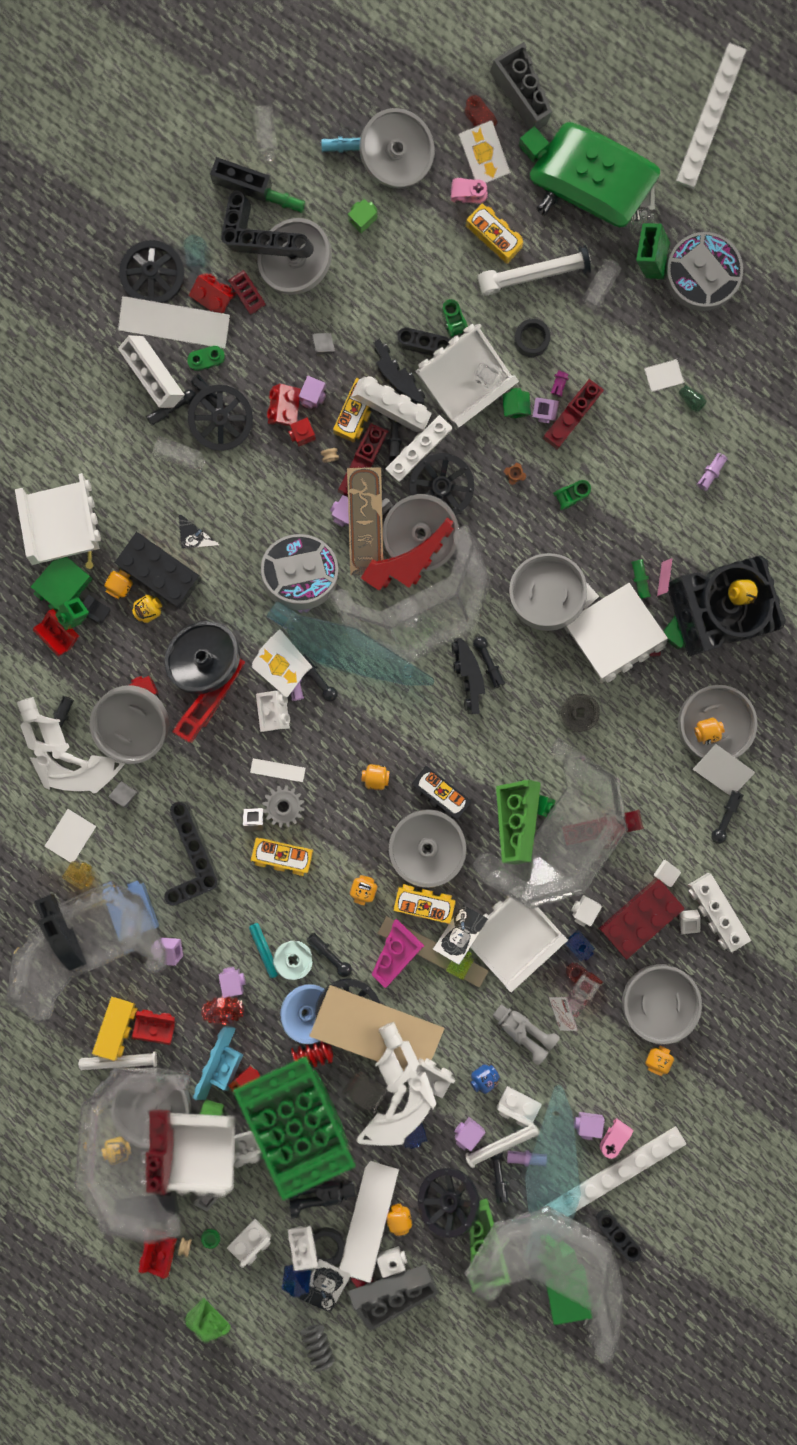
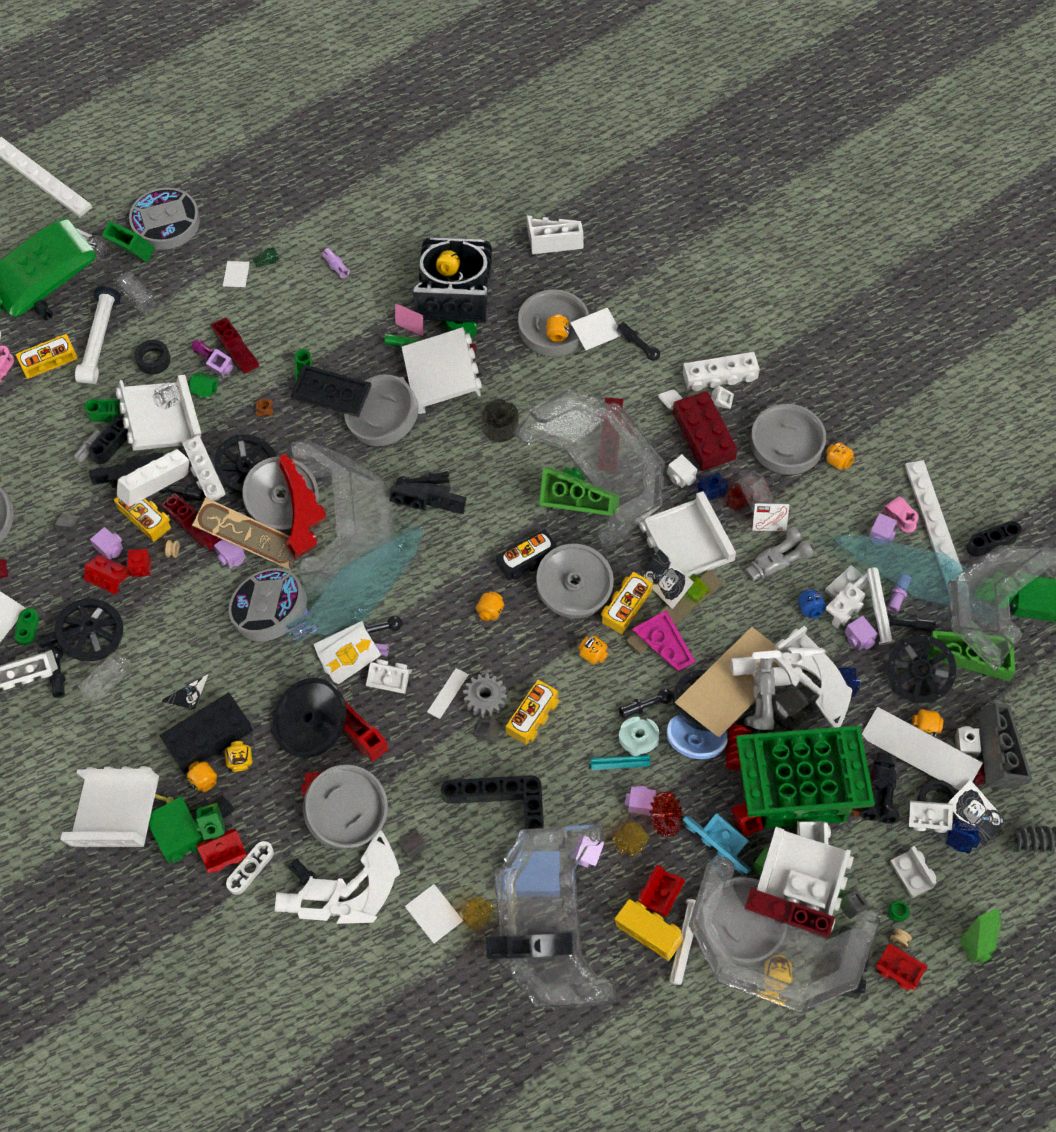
camera: 60 degrees left, 25 degrees down
(65, 671) = (235, 876): none -> white beam
(185, 1160) = (808, 890): none -> white bracket
(191, 985) = (630, 838): none -> clear yellow brick
(366, 1064) = (763, 690): none -> light grey piece
(400, 321) = (84, 451): none -> light grey axle
(488, 1110) = (844, 604): none -> white bracket
(551, 534) = (331, 390): none -> black tile

